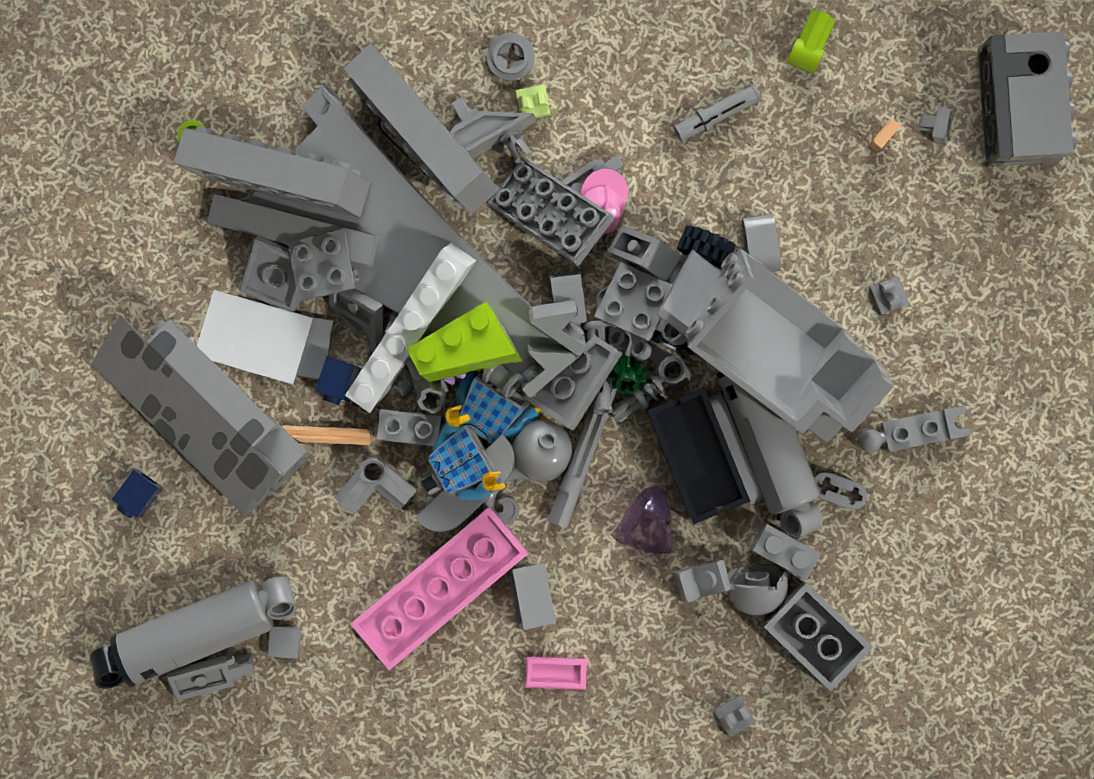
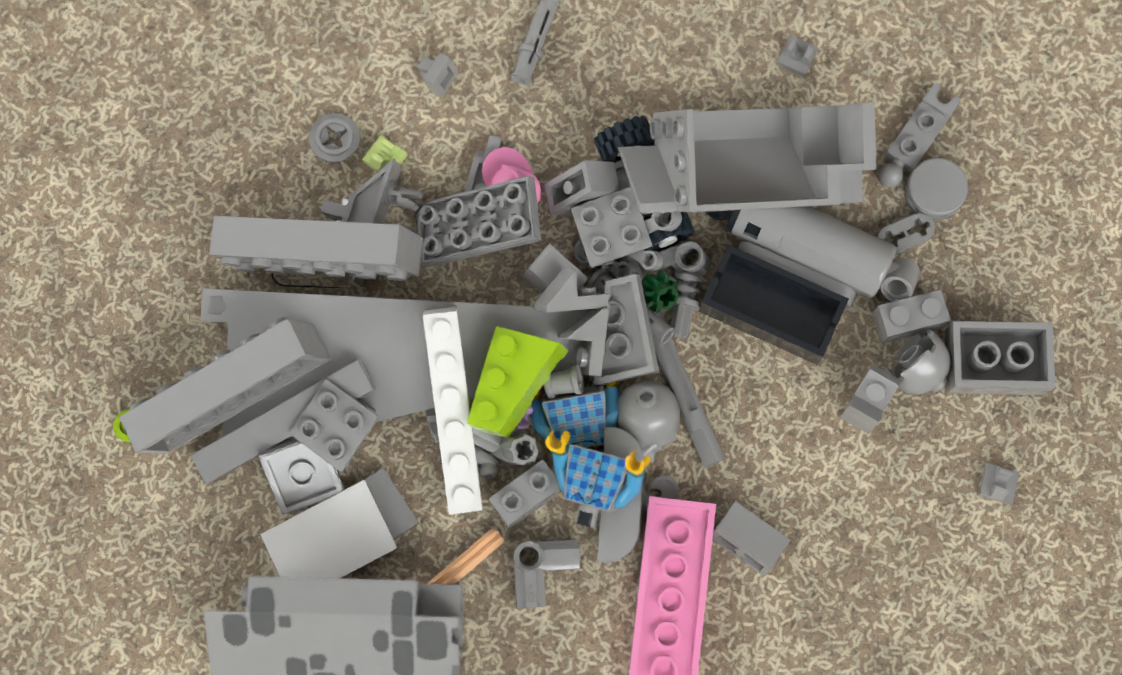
camera: 45 degrees left, 10 degrees down
(336, 380) = (430, 511): dark blue brick -> none
(360, 314) = (400, 440): light grey wing -> none
(556, 673) = (827, 583): bright pink tile -> none
(624, 77) = (438, 73): none -> light grey tile
(646, 533) = (792, 405): clear purple helmet -> none
(762, 241) = (660, 96): light grey beam -> none
(891, 480) = (936, 188): none -> light grey head

